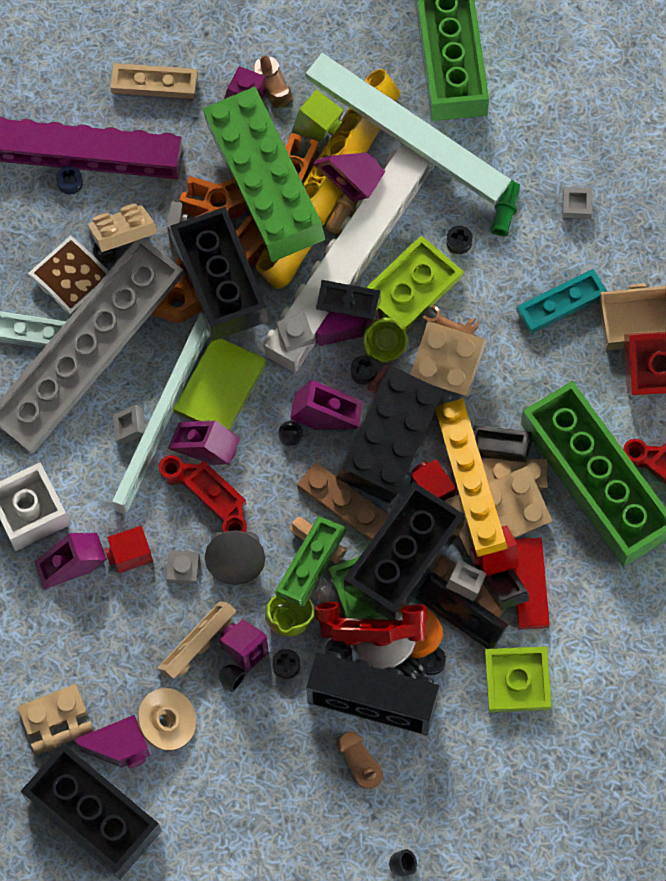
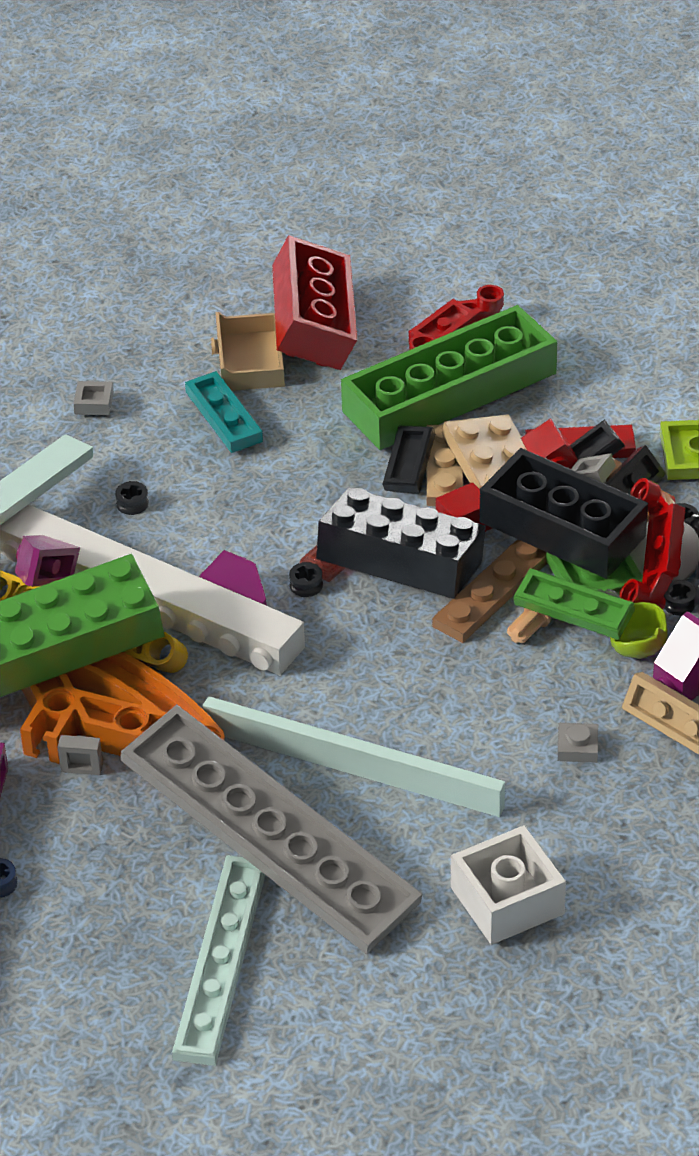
camera: 90 degrees left, 25 degrees down
(68, 274) = (150, 868): reddish brown slope -> none
(70, 558) = (579, 847): magenta slope -> none
(103, 258) = (125, 827): black hinge -> none
(121, 228) = (98, 787): tan plate -> none
(128, 549) = (560, 785): red brick -> none
(129, 424) = (382, 793): light grey plate -> none
(205, 442) = (408, 715): magenta slope -> none
(208, 488) = (482, 707): red plate -> none
(219, 273) = (188, 666): black brick -> none
(220, 384) = (327, 704): lime tile -> none
(235, 557) = (567, 679): dark grey dish -> none
(290, 436) = (390, 654): black hinge -> none
(295, 332) = (264, 616): light grey plate -> none
(325, 408) = (363, 604): magenta slope -> none
(348, 300) = (229, 556): black hinge -> none
(385, 339) = (269, 551): lime hair -> none
(415, 282) = (189, 532): lime plate -> none
(448, 358) = (301, 488): tan brick -> none
(468, 328) = (259, 494): medium nougat piece -> none
(470, 478) = (468, 462): yellow plate -> none
(505, 209) = (108, 460): green axle -> none

